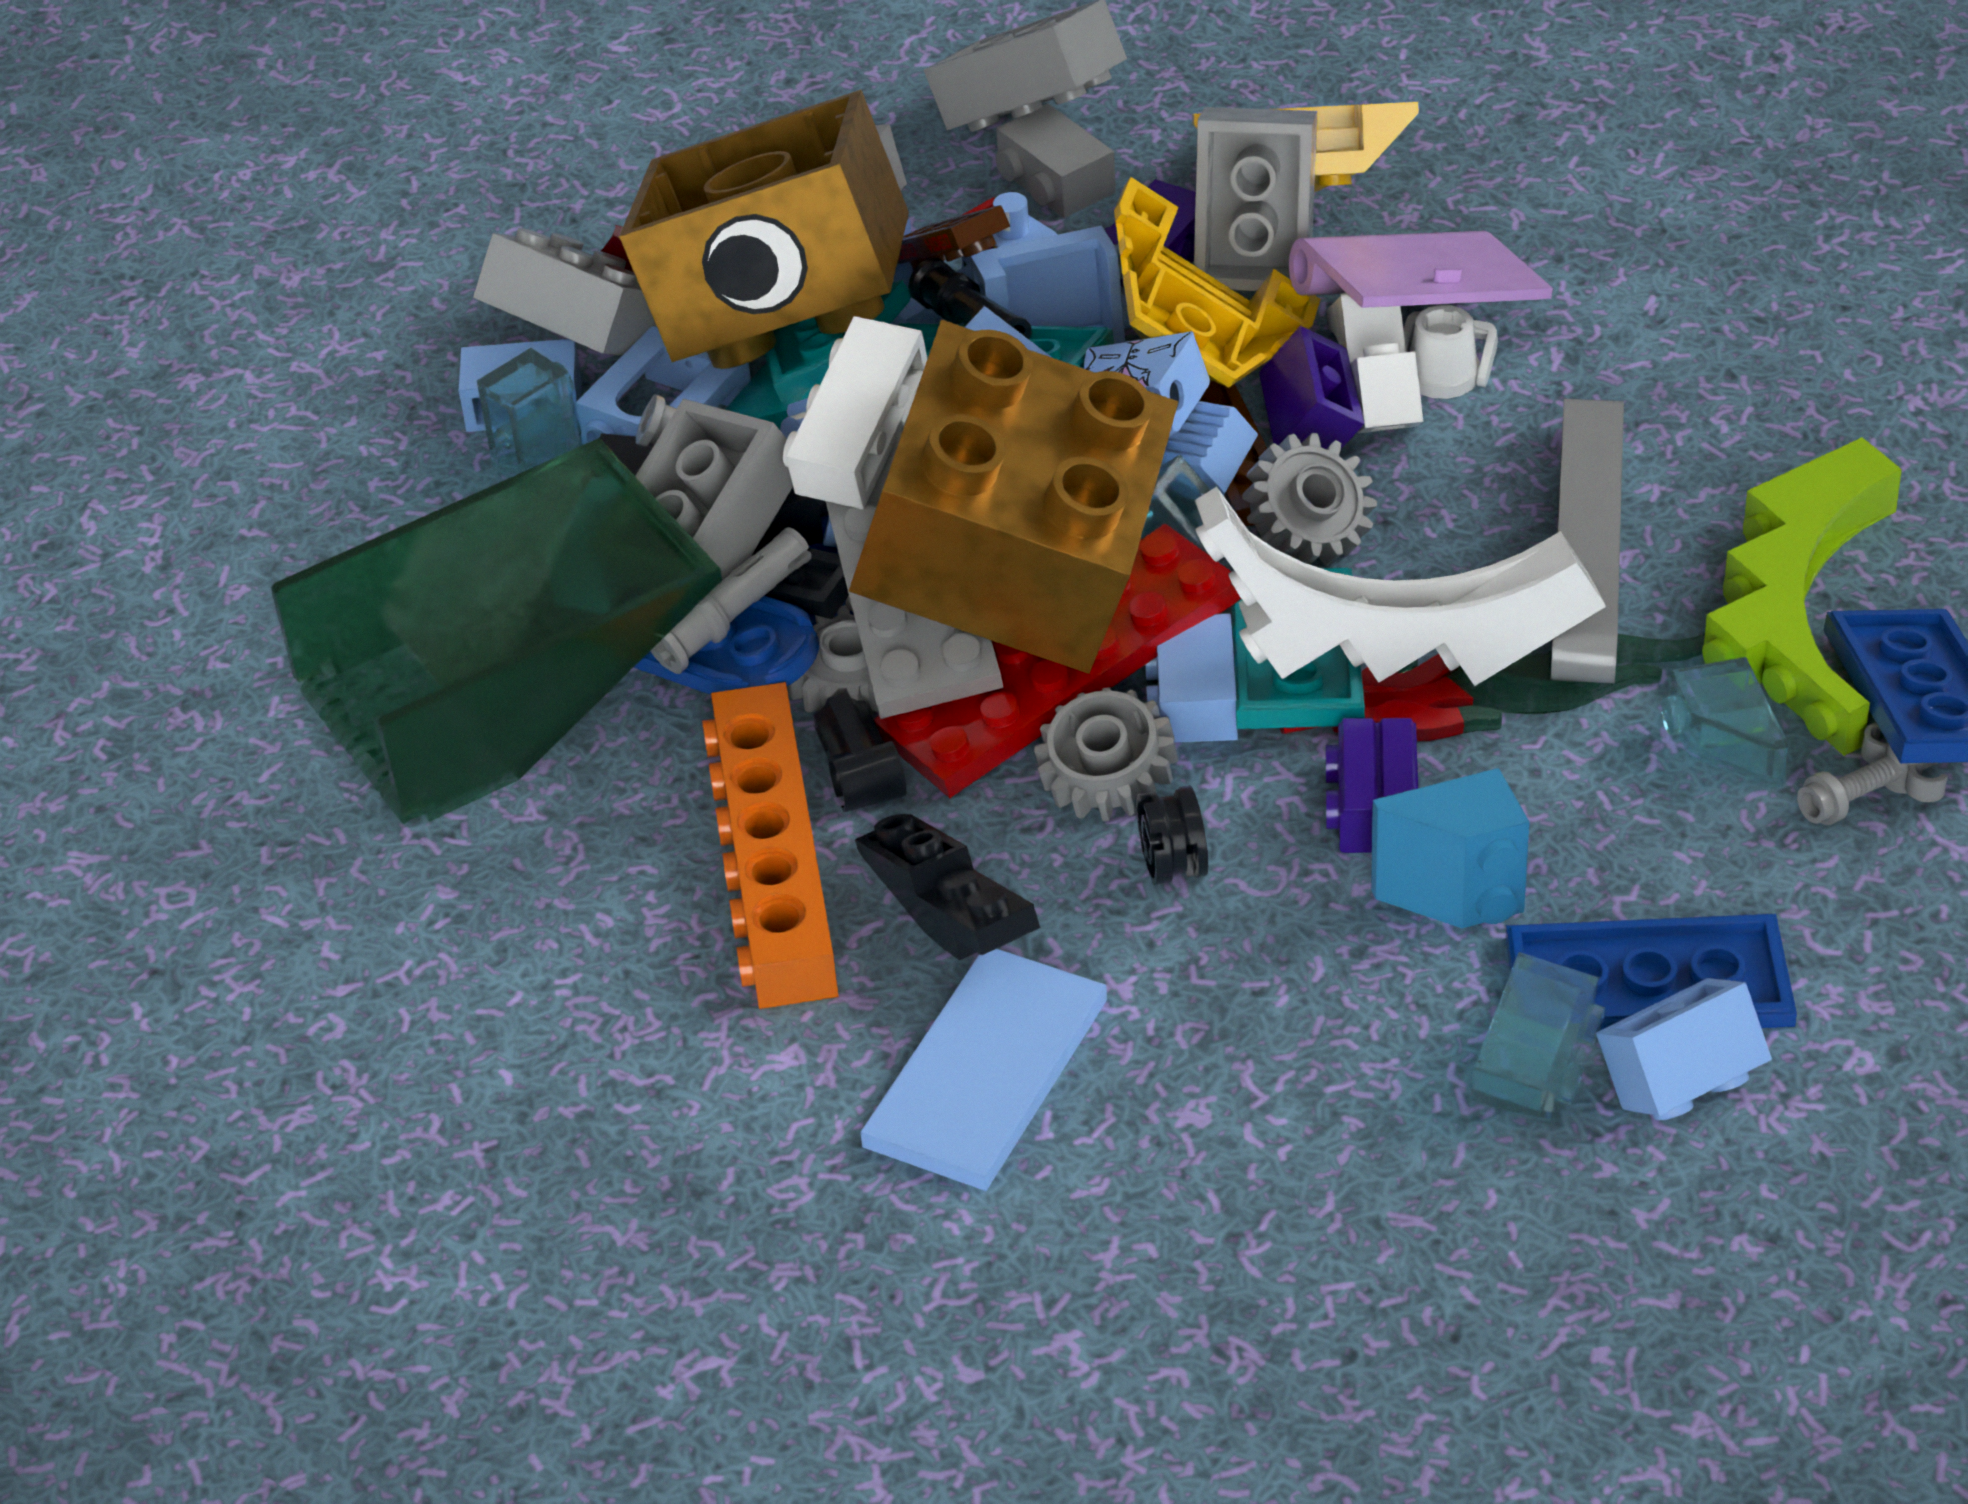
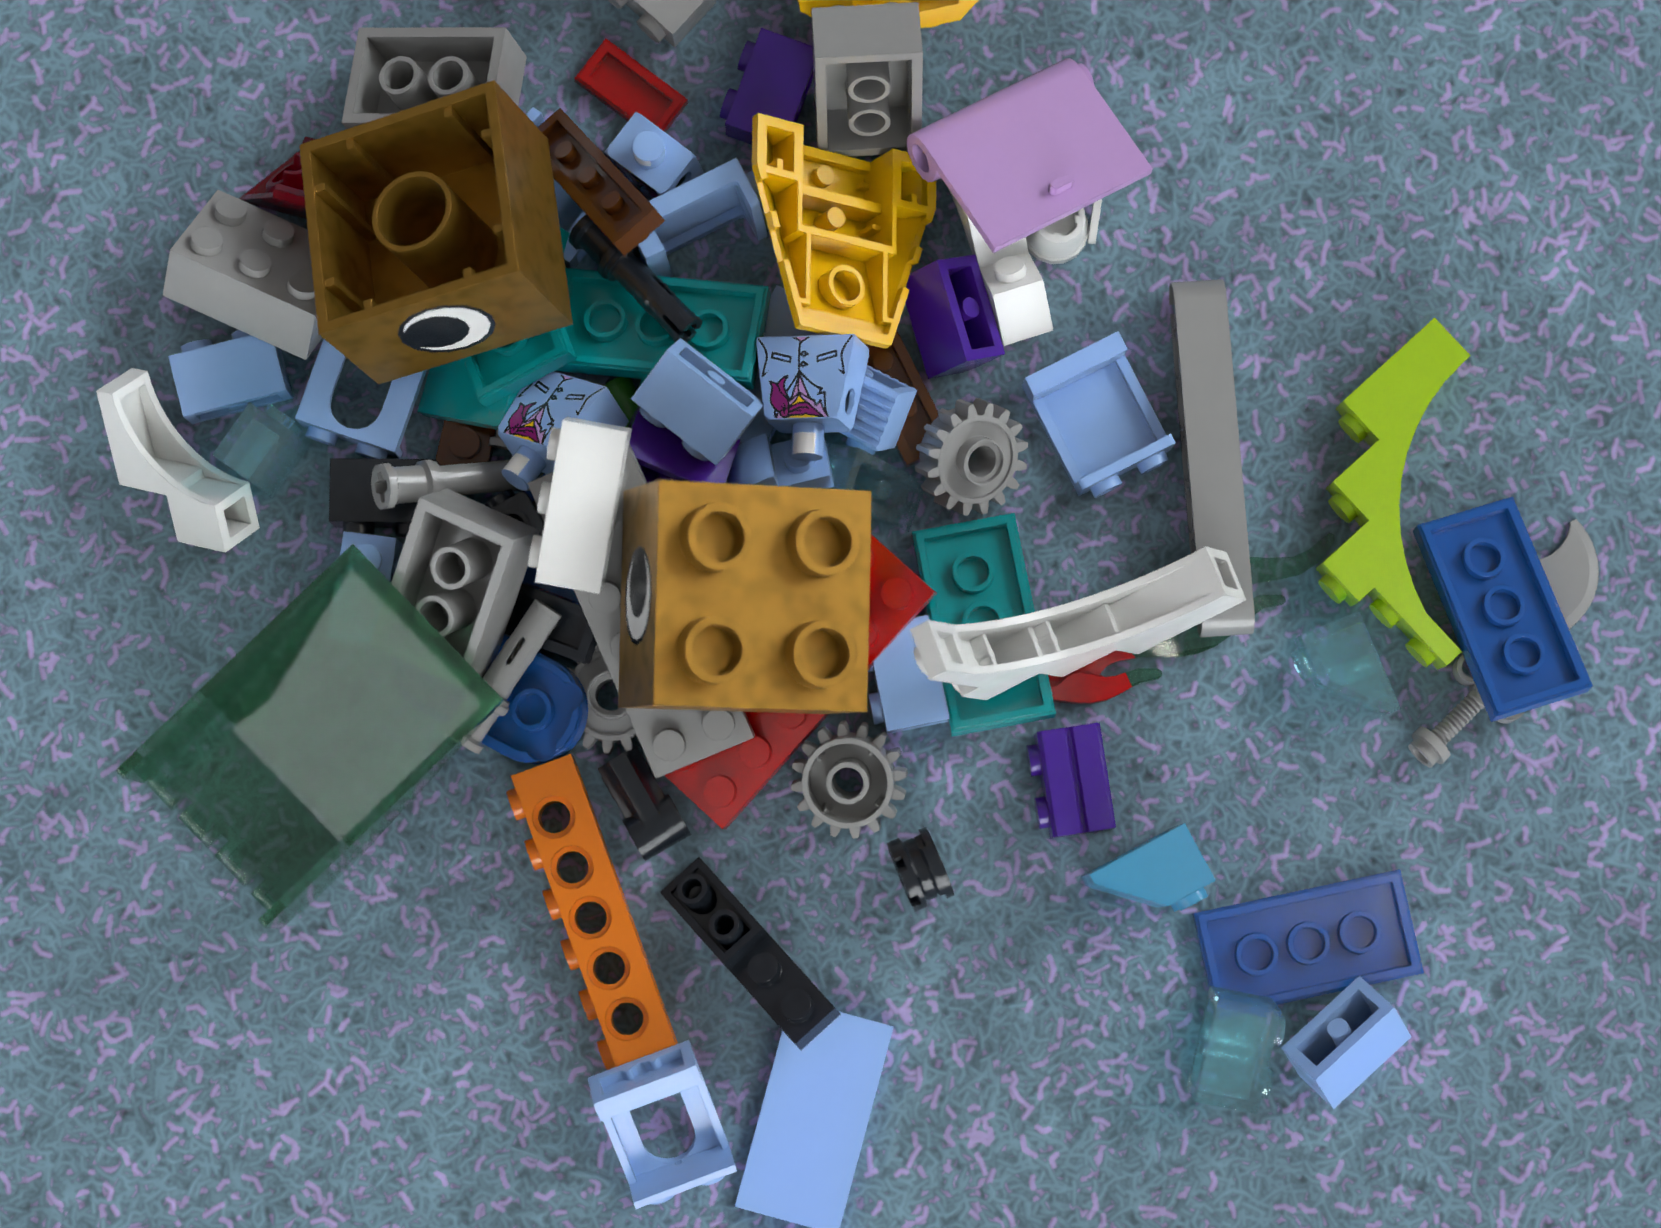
camera: 20 degrees left, 40 degrees up
(416, 421) = (150, 455): none -> white arch
(783, 948) = (646, 1081): none -> light blue panel
(1460, 496) = (1098, 416): none -> light blue panel

